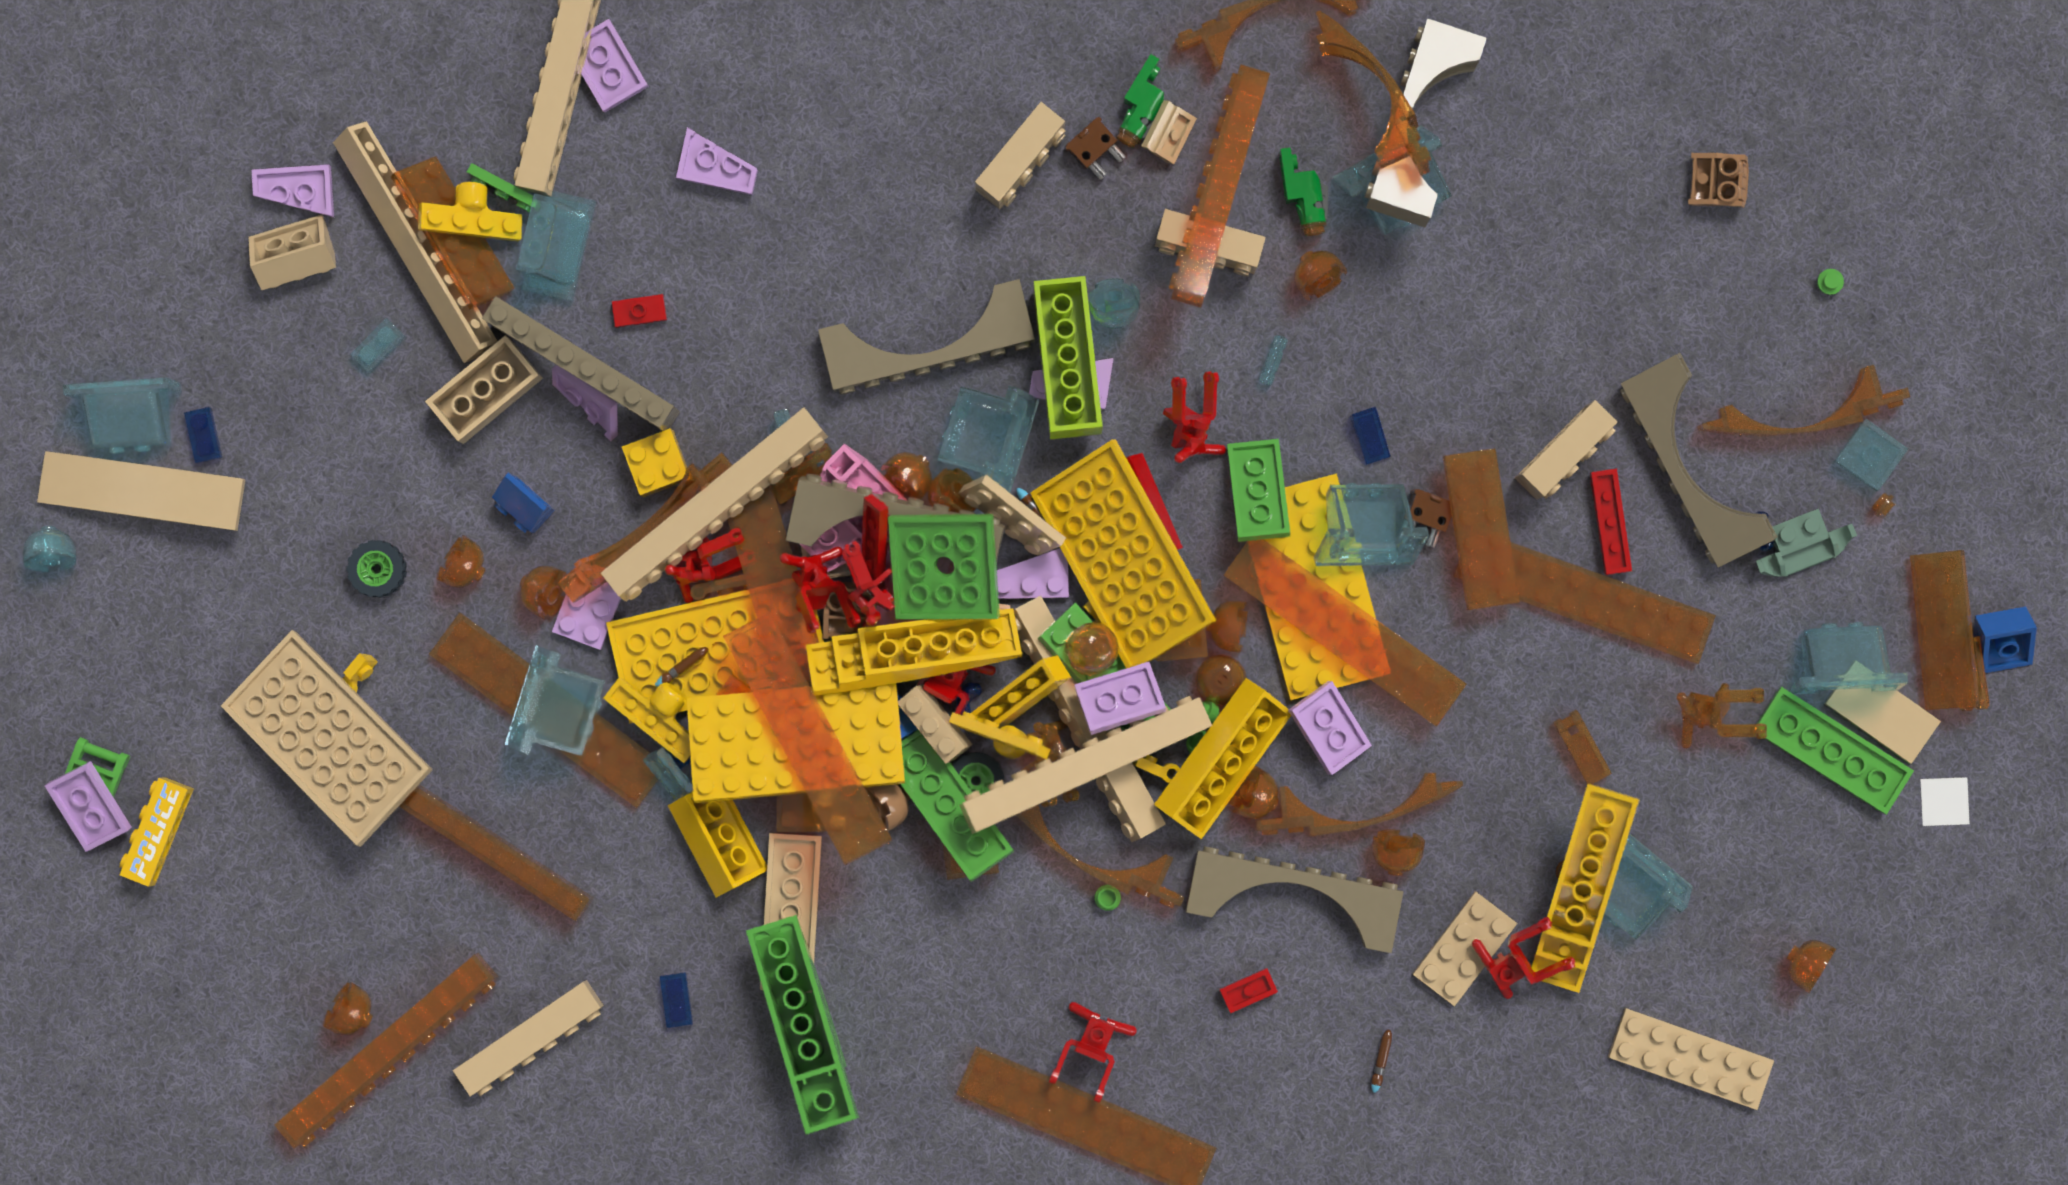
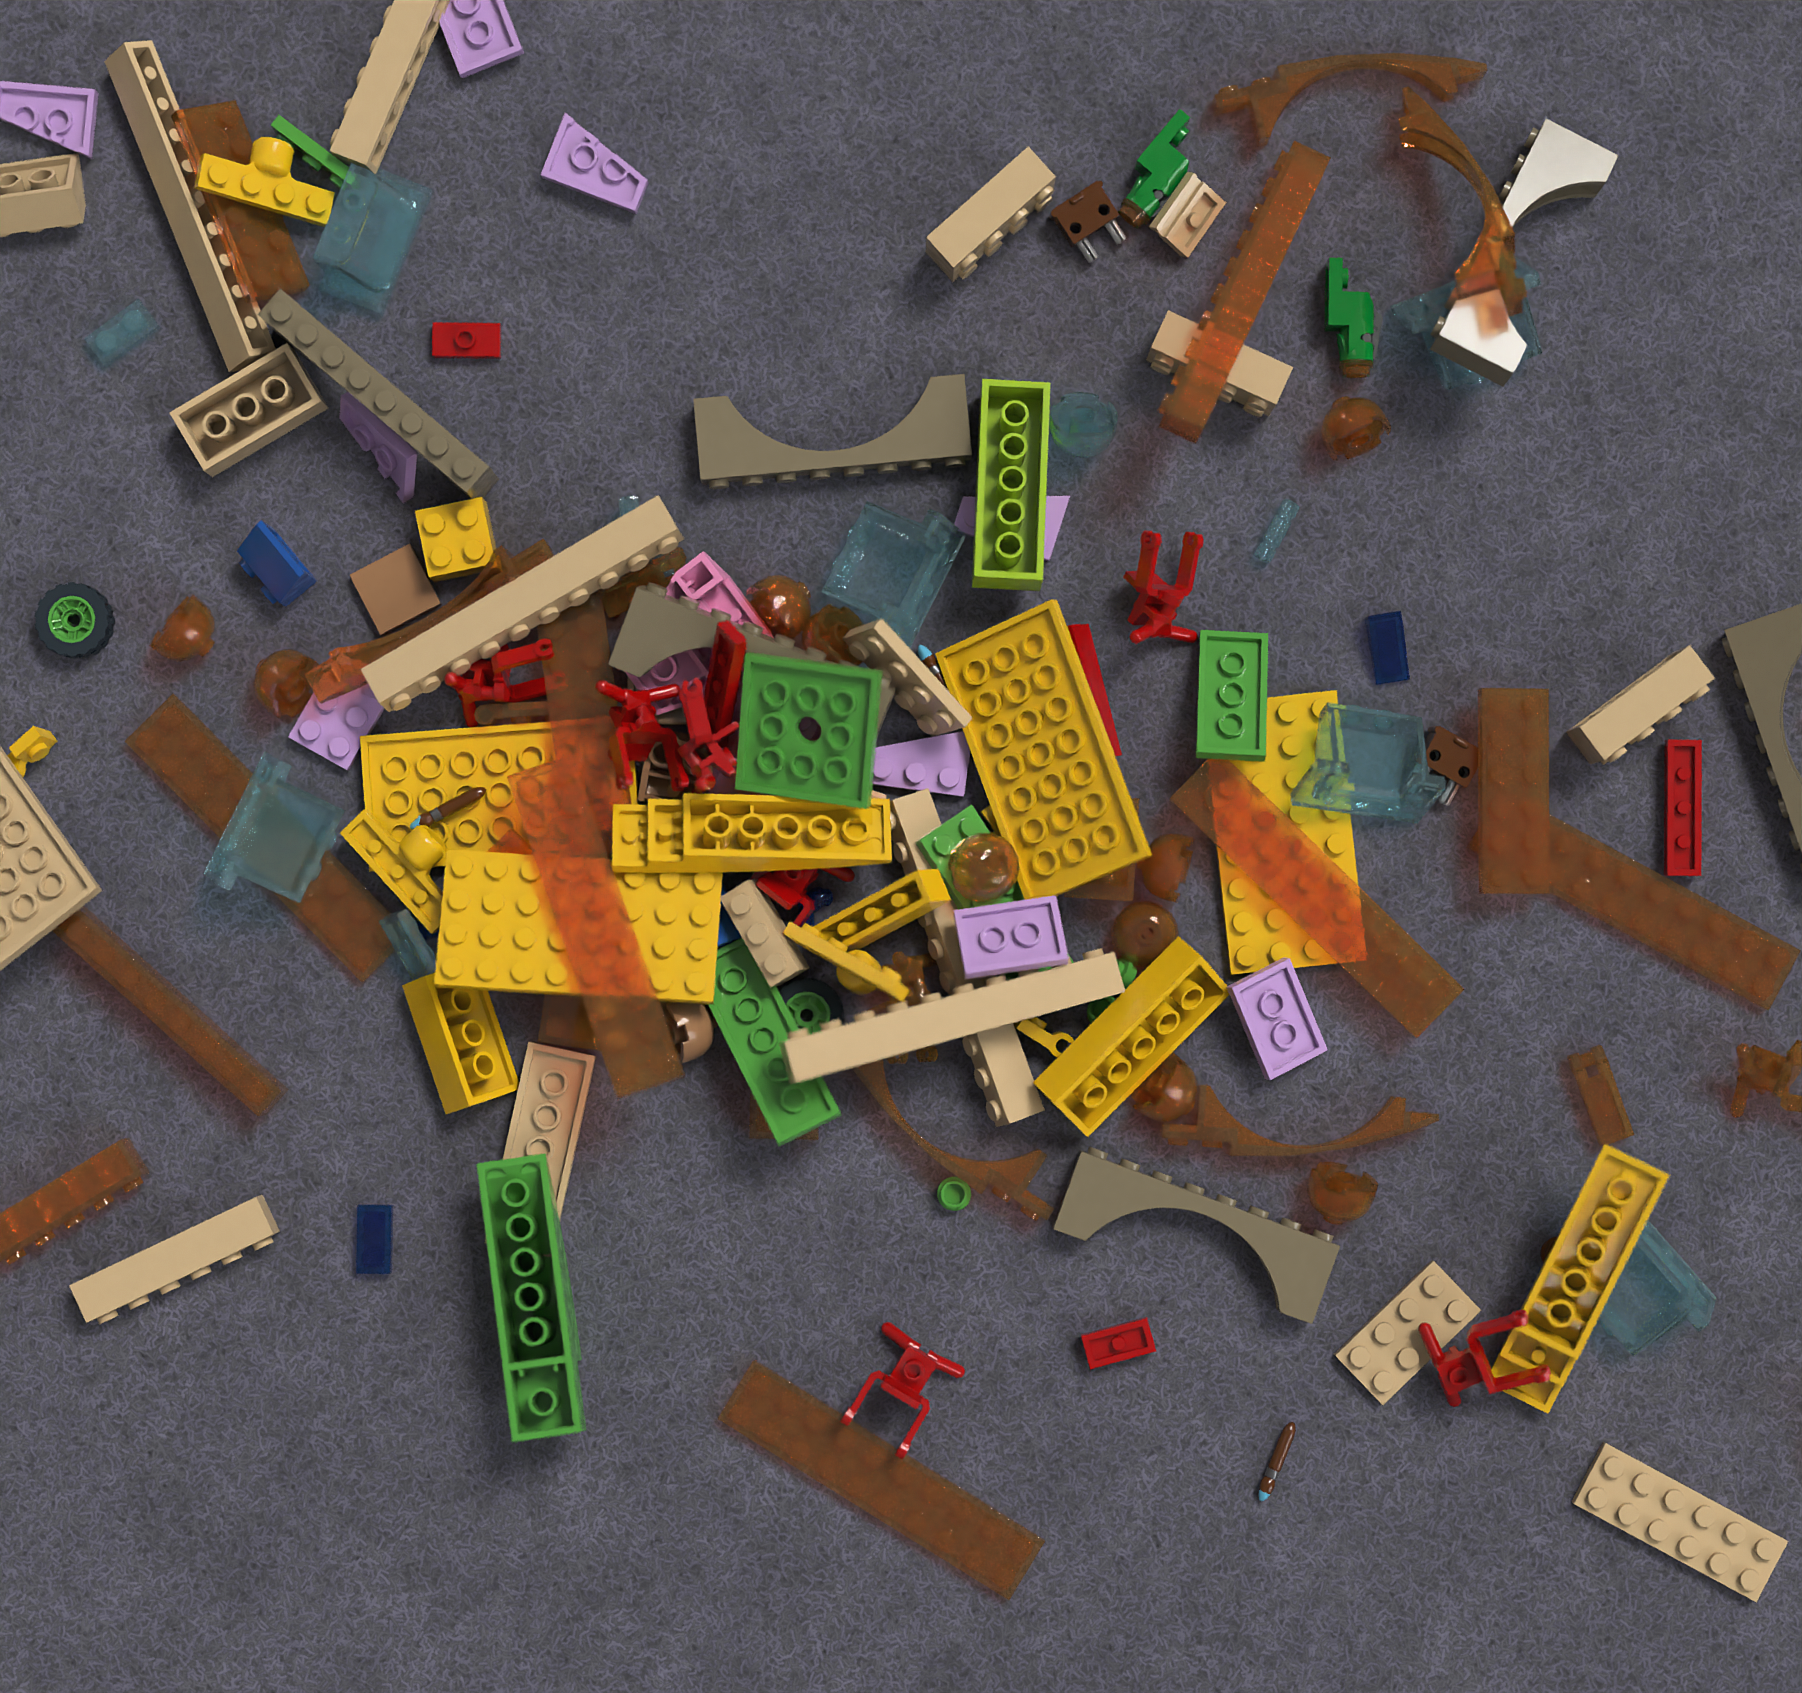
camera: 10 degrees right, 0 degrees up
(615, 507) = (395, 589): none -> medium nougat tile

